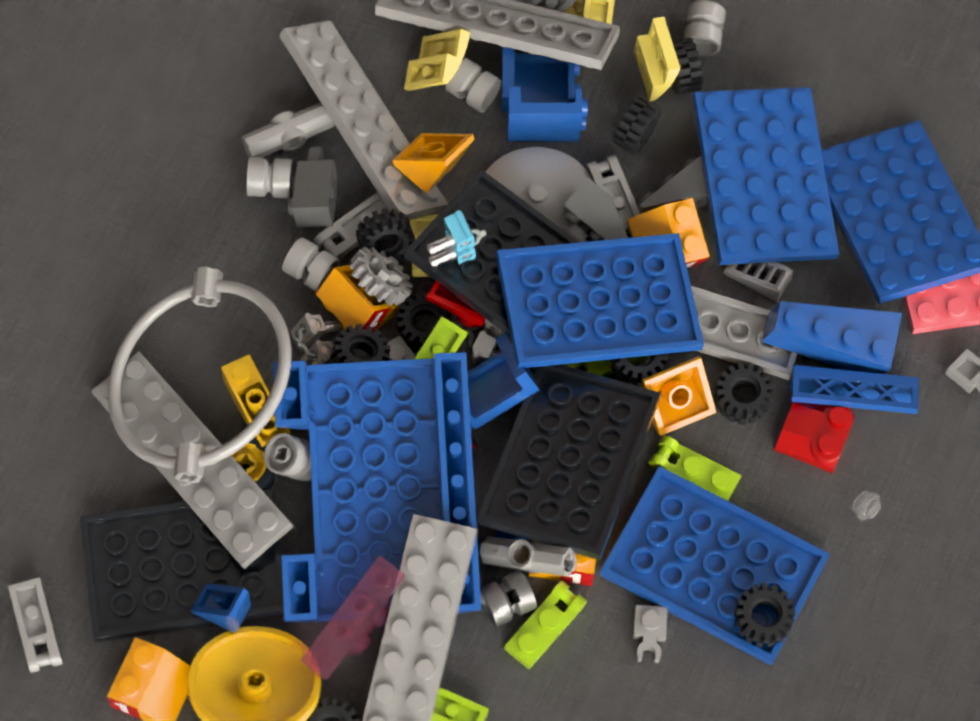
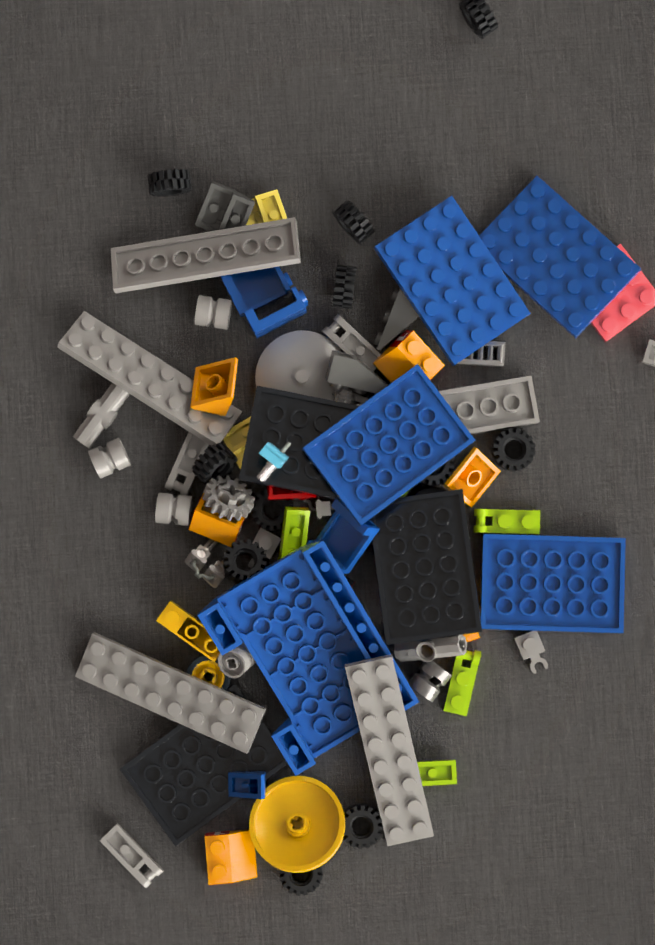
camera: 20 degrees left, 20 degrees up
(192, 457) = (118, 576): light grey piece -> none
(314, 191) = (146, 452): dark grey hinge -> none
(355, 619) = (340, 752): clear pink bracket -> none
(437, 60) = (179, 308): light yellow slope -> none
(656, 59) = (332, 227): light yellow slope -> none
(705, 26) = (352, 181): light grey wheel -> none
(770, 597) = (617, 614): black tyre -> none
(815, 434) = (574, 451): red slope -> none
(835, 335) = (564, 377): blue wedge -> none
(854, 389) = (586, 407): blue fence -> none
(866, 505) = (633, 489): clear plate -> none

